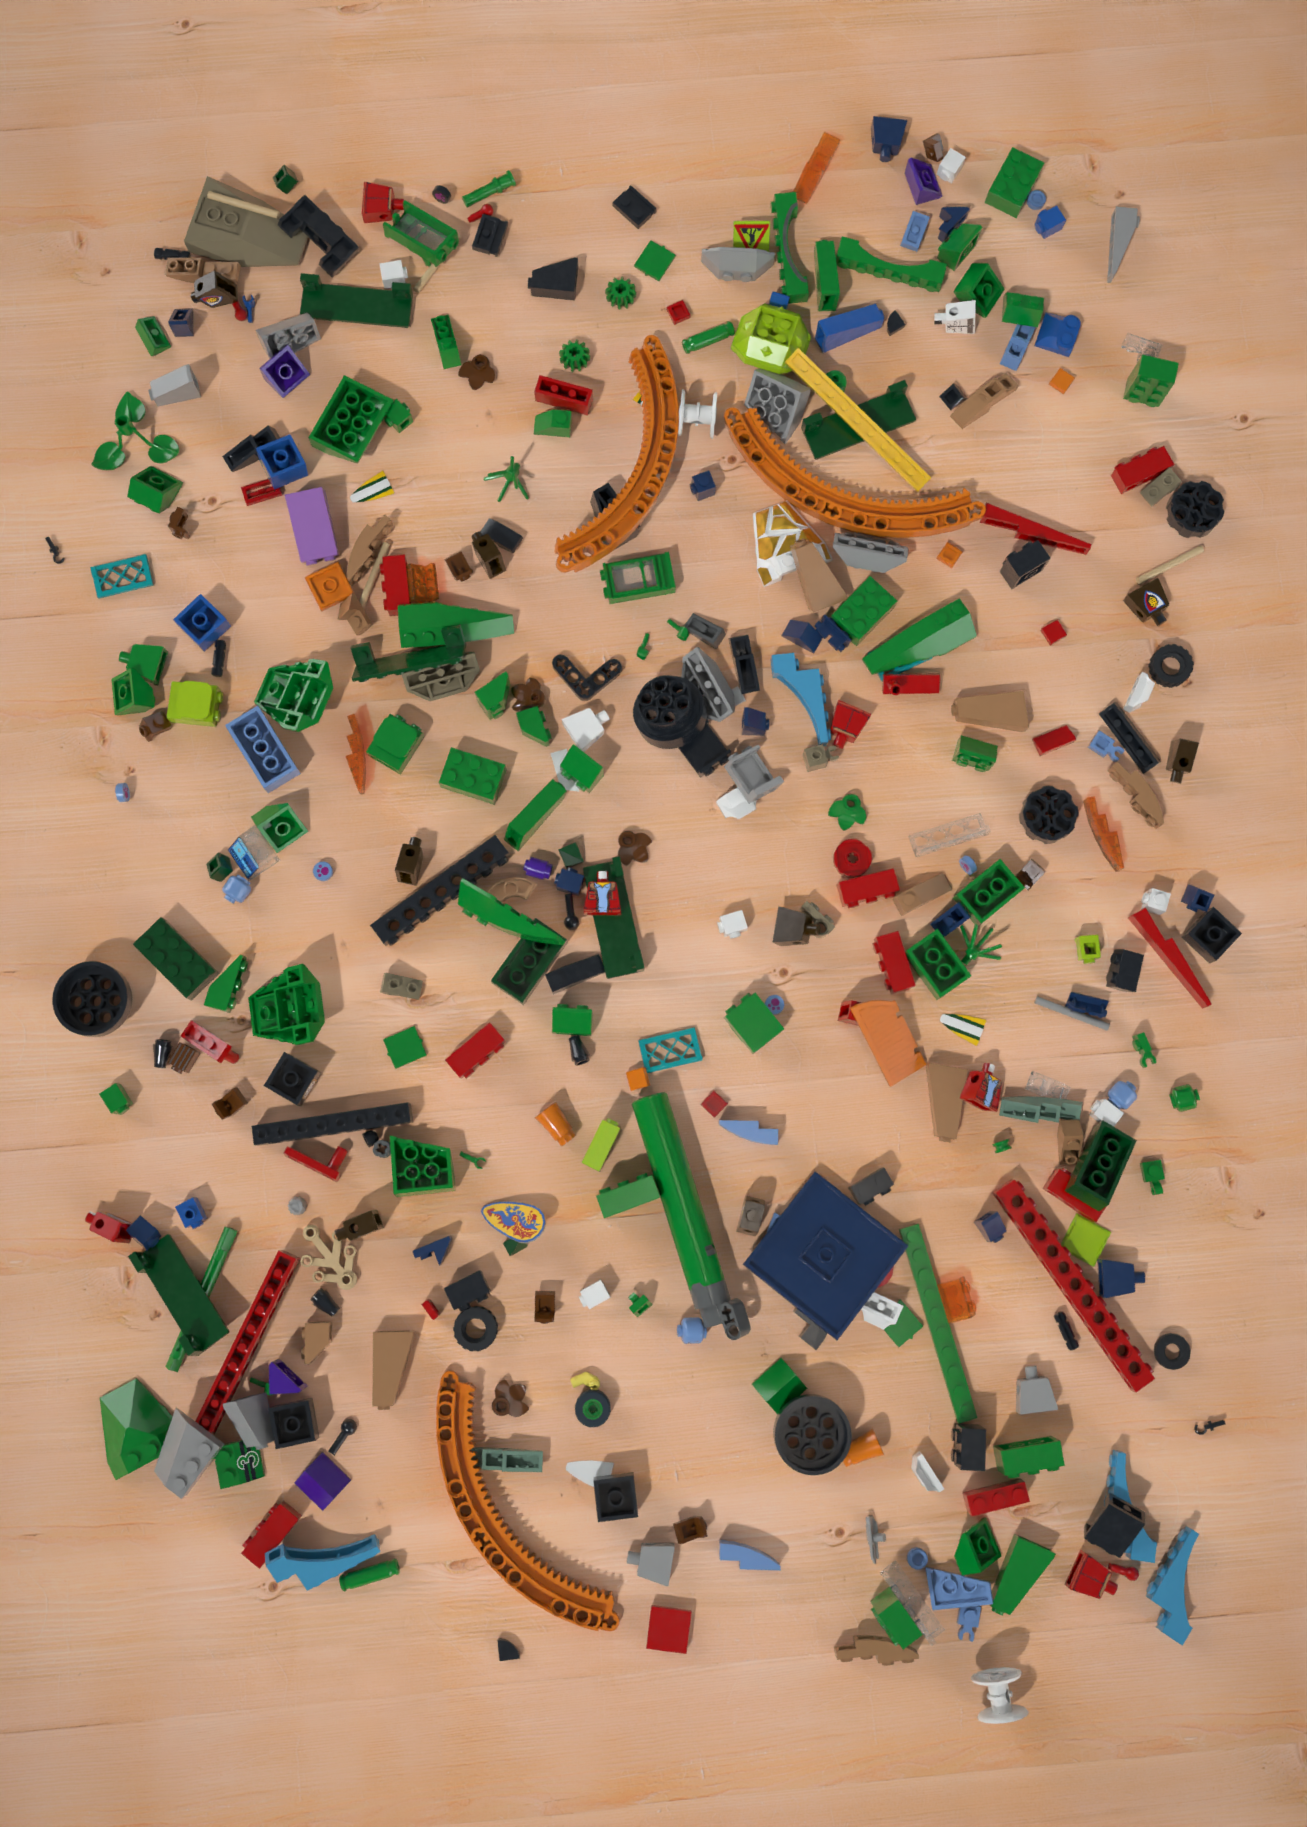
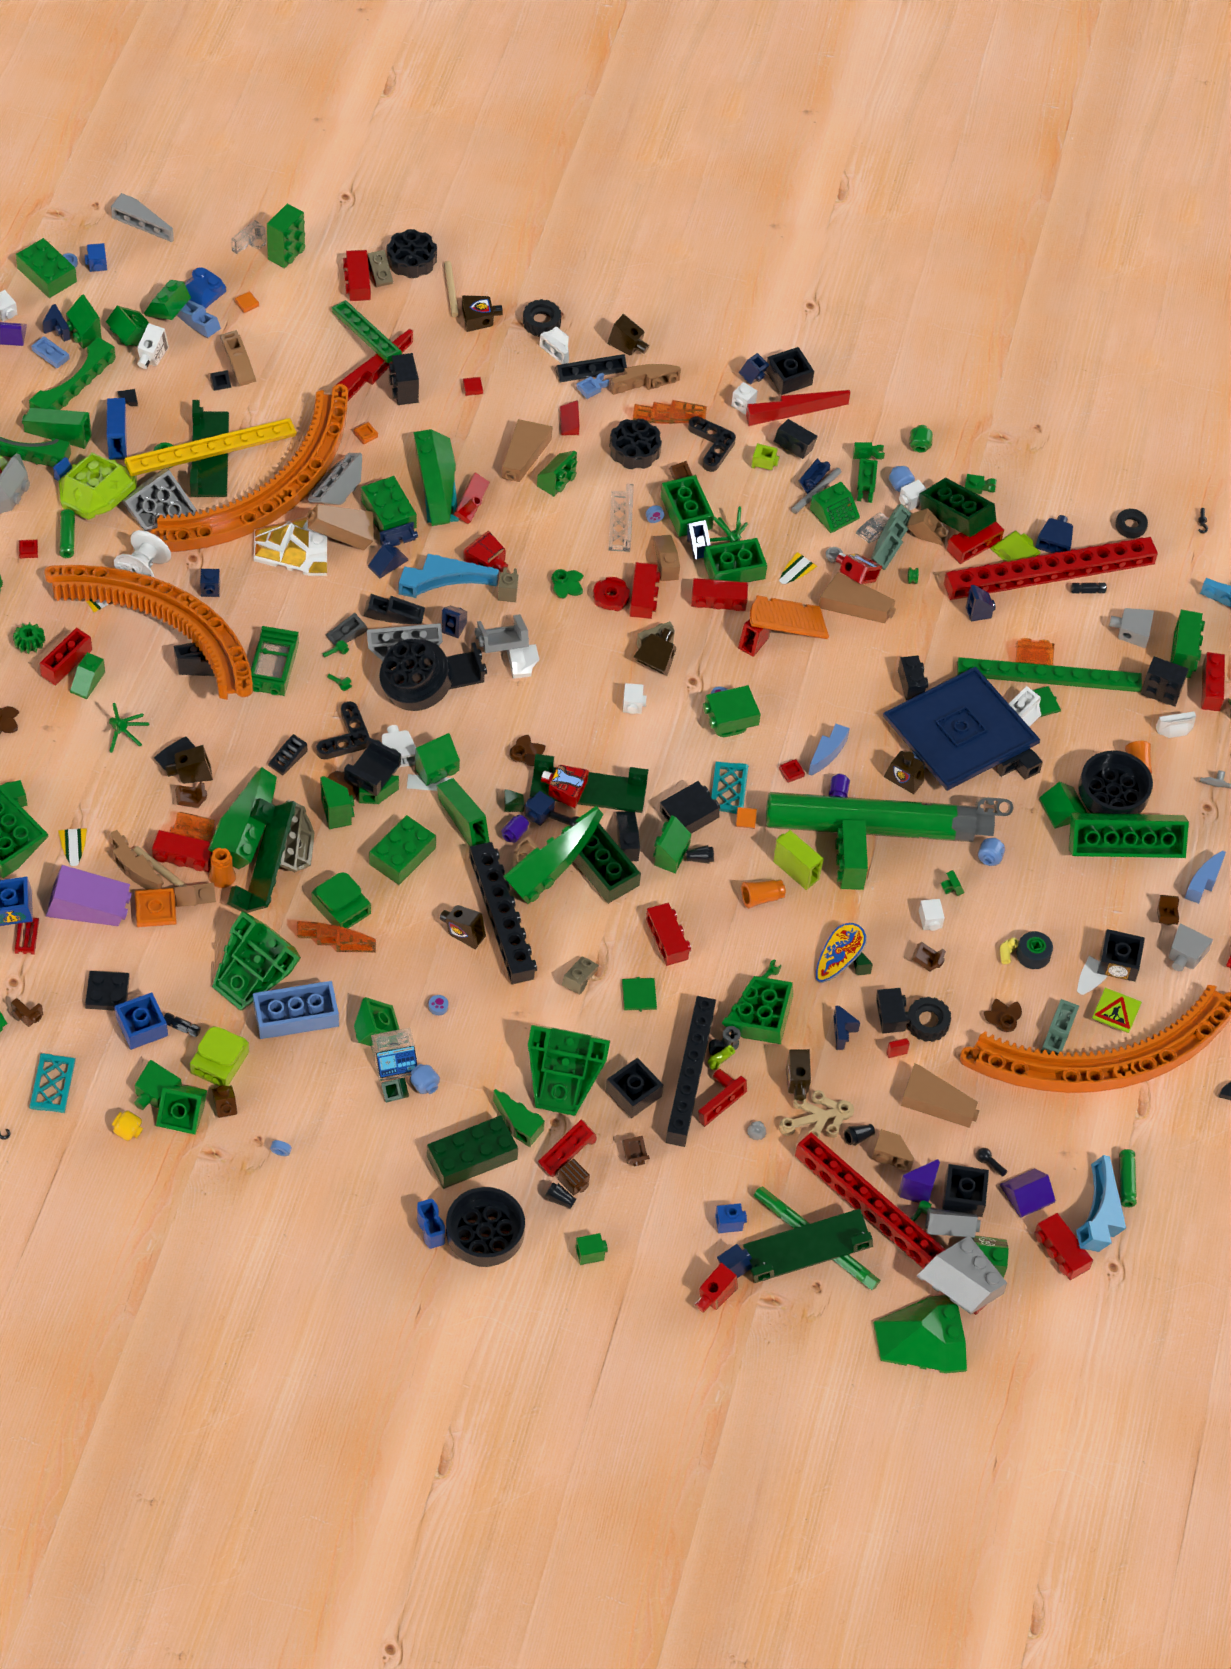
camera: 70 degrees left, 25 degrees down
(91, 947) = (431, 1223): none -> blue brick
(97, 655) = (127, 1125): none -> yellow head
(230, 582) = (106, 990): none -> black plate
(361, 1145) = (718, 1058): none -> lime arm
(387, 626) = (222, 869): none -> orange plant
(542, 627) = (294, 744): none -> black slope
(543, 714) = (373, 767): none -> black panel
(553, 1510) = (1116, 1010): none -> lime piece
(623, 1023) = (691, 807): none -> black brick
(708, 1156) = (839, 785): none -> dark purple brick
(758, 1465) = (1128, 835): none -> green brick
(995, 1057) = (832, 553): none -> light grey piece
(1054, 1040) = (834, 507): none -> green slope
(1070, 505) = (366, 331): none -> green tile
(1095, 893) = (718, 440): none -> black beam
(1108, 1059) = (867, 478): none -> green hinge

